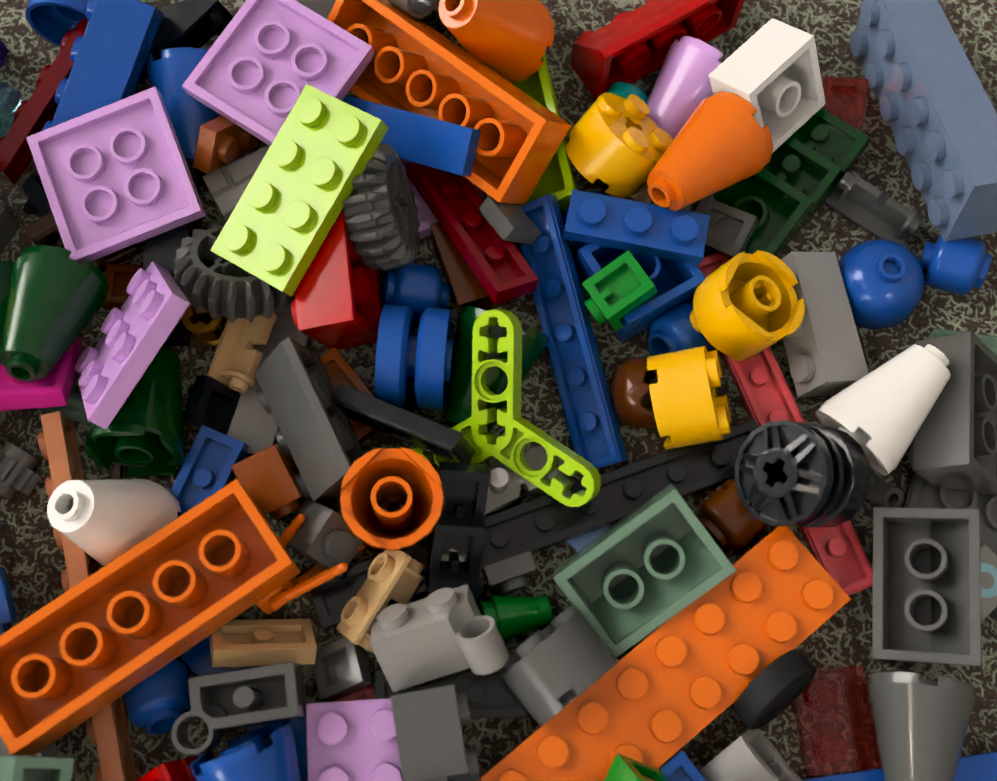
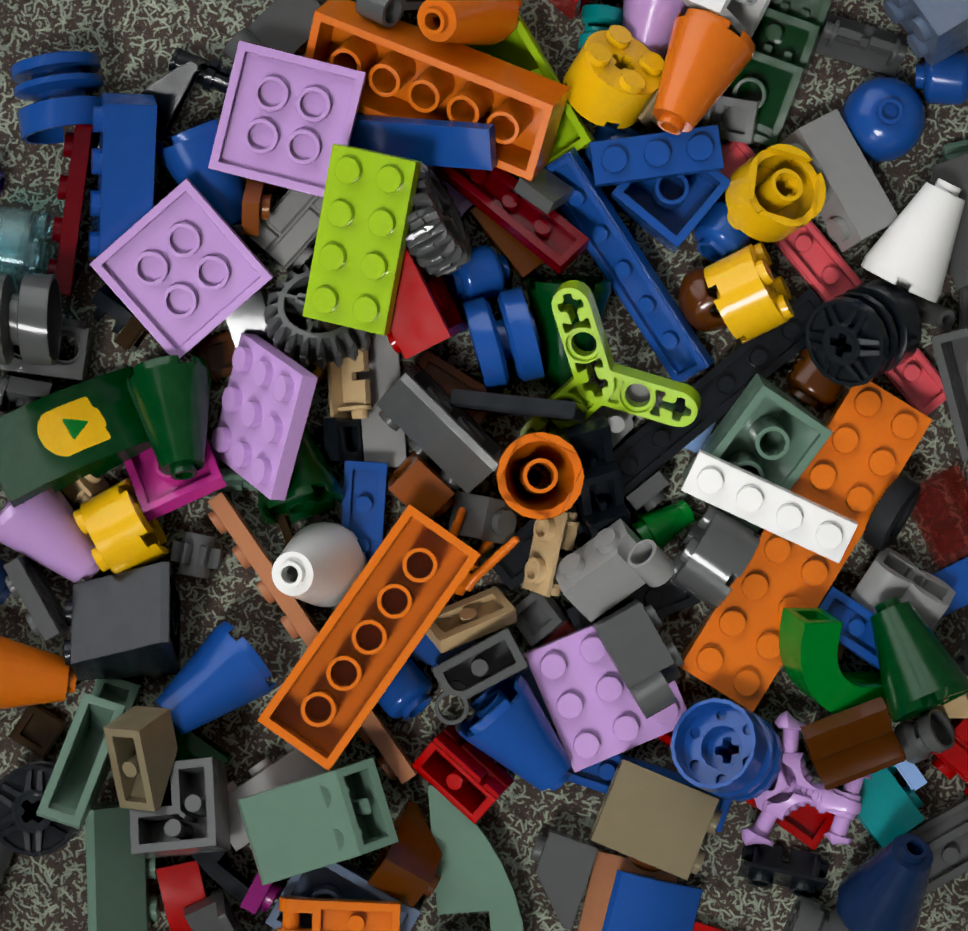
camera: 20 degrees left, 15 degrees up
(618, 290) = (659, 223): green bracket -> none
(640, 630) = (769, 506): none -> white plate

